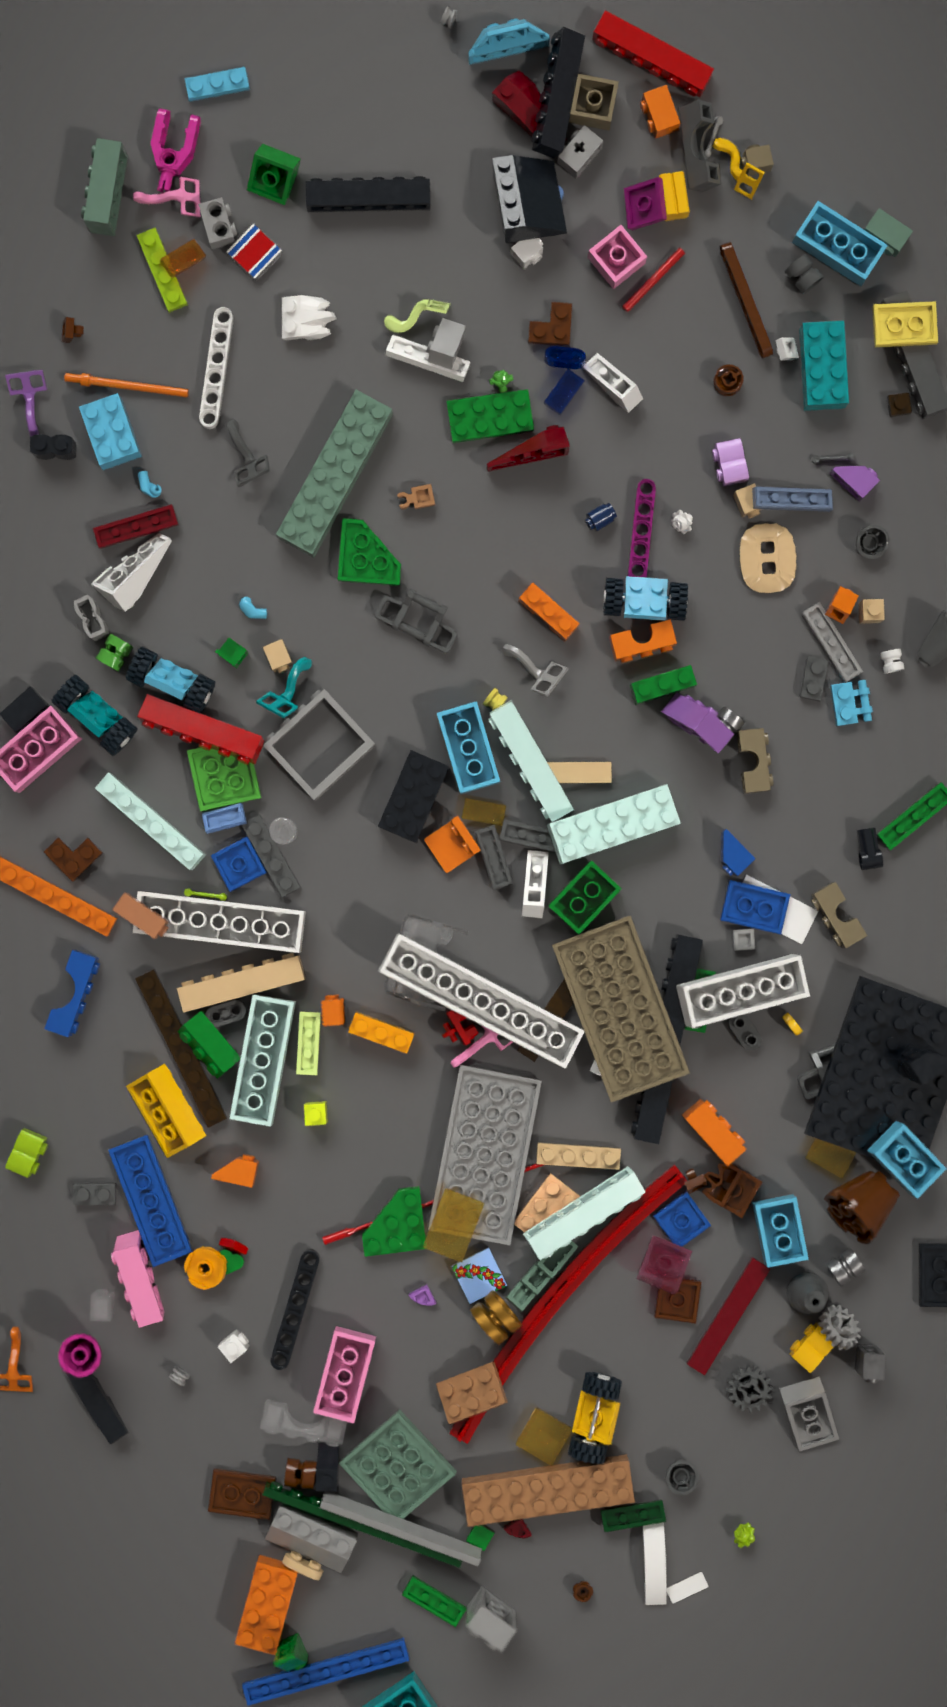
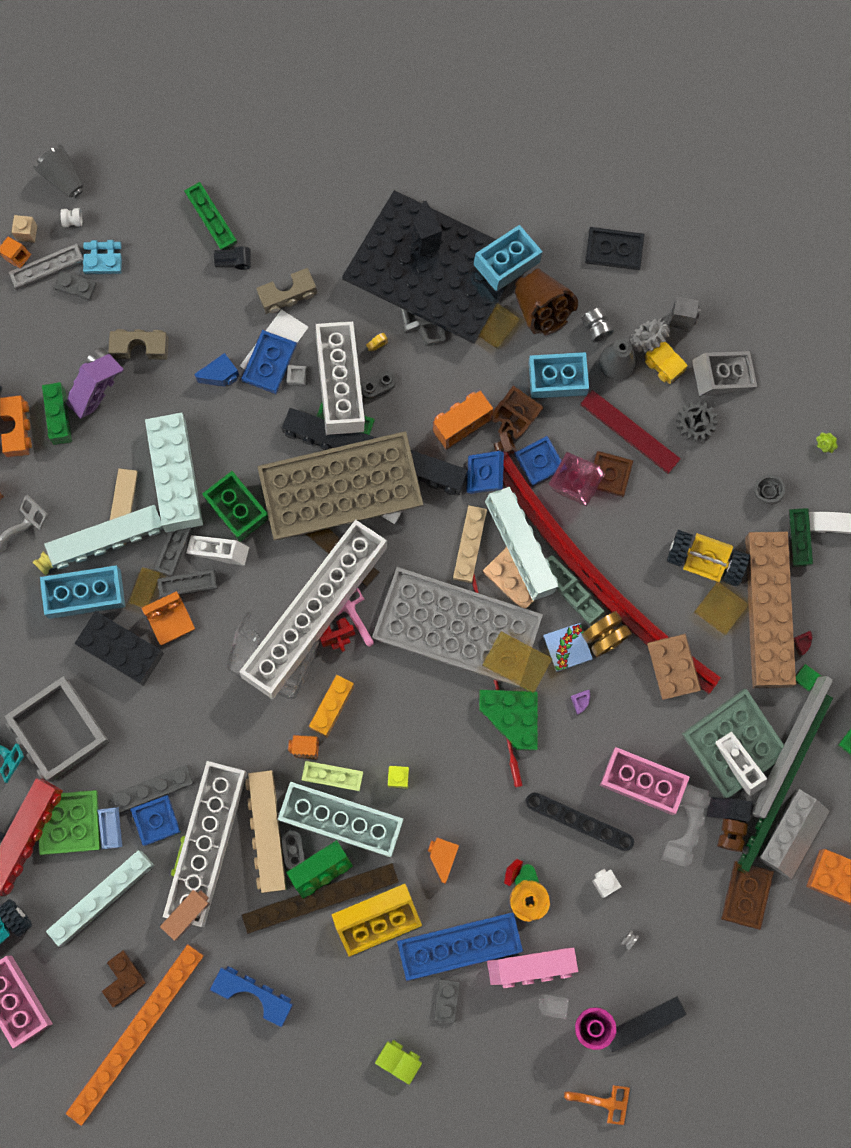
camera: 80 degrees left, 10 degrees down
(283, 831) = (130, 772): clear wheel -> none
(297, 1563) = (814, 851): tan plate -> none
(375, 1476) = (741, 764): none -> white slope
(658, 1163) = (485, 472): none -> blue plate

